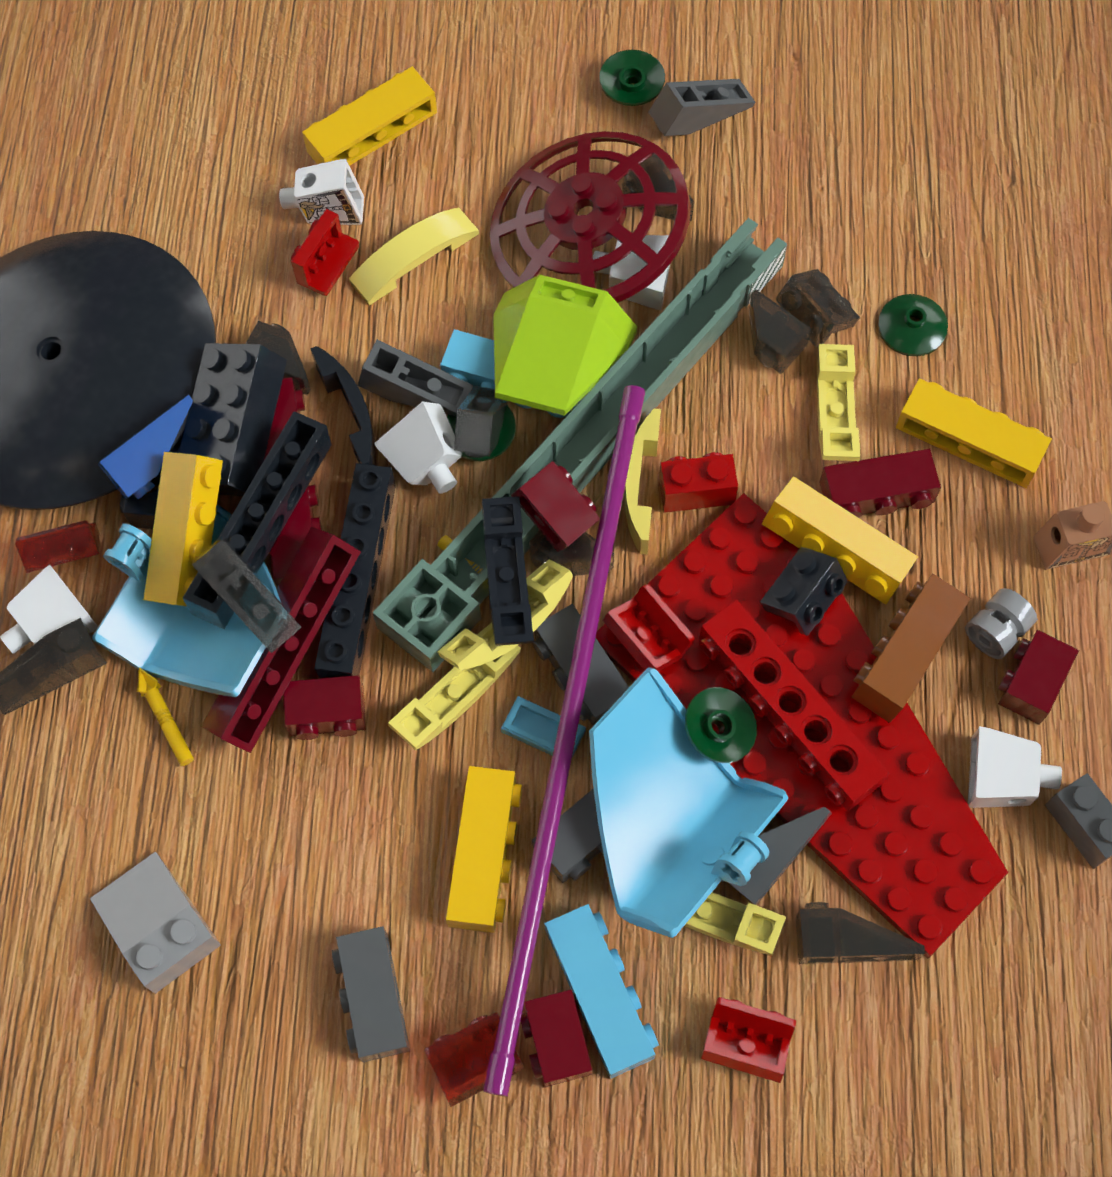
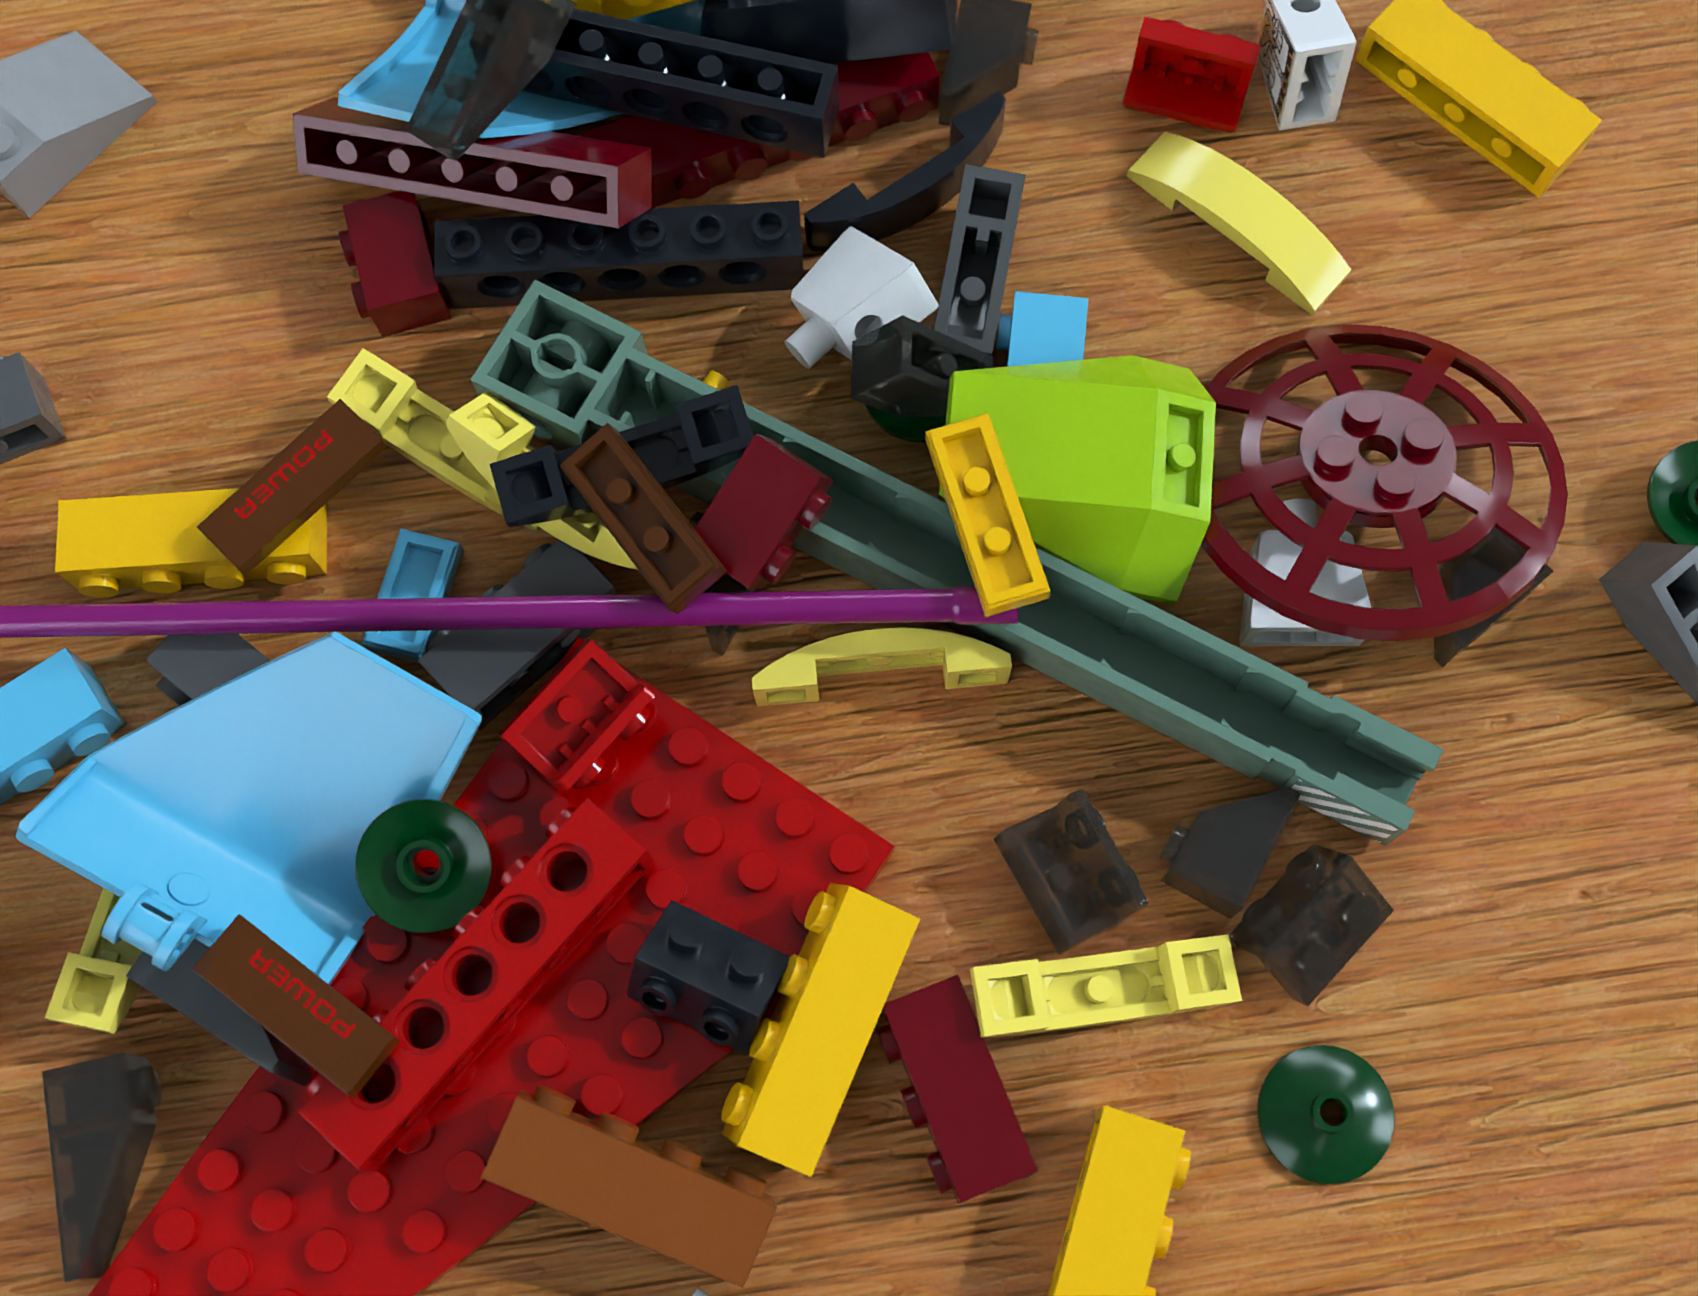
camera: 80 degrees right, 5 degrees up
(149, 687) = (396, 21): yellow piece -> none
(473, 771) = (292, 487): none -> reddish brown tile
(548, 564) = (643, 519): none -> reddish brown tile
(586, 389) = (987, 515): none -> yellow tile
(698, 482) = (891, 759): red brick -> none
(773, 407) = (1071, 872): none -> clear smoke bracket
(795, 792) = (296, 1005): none -> reddish brown tile

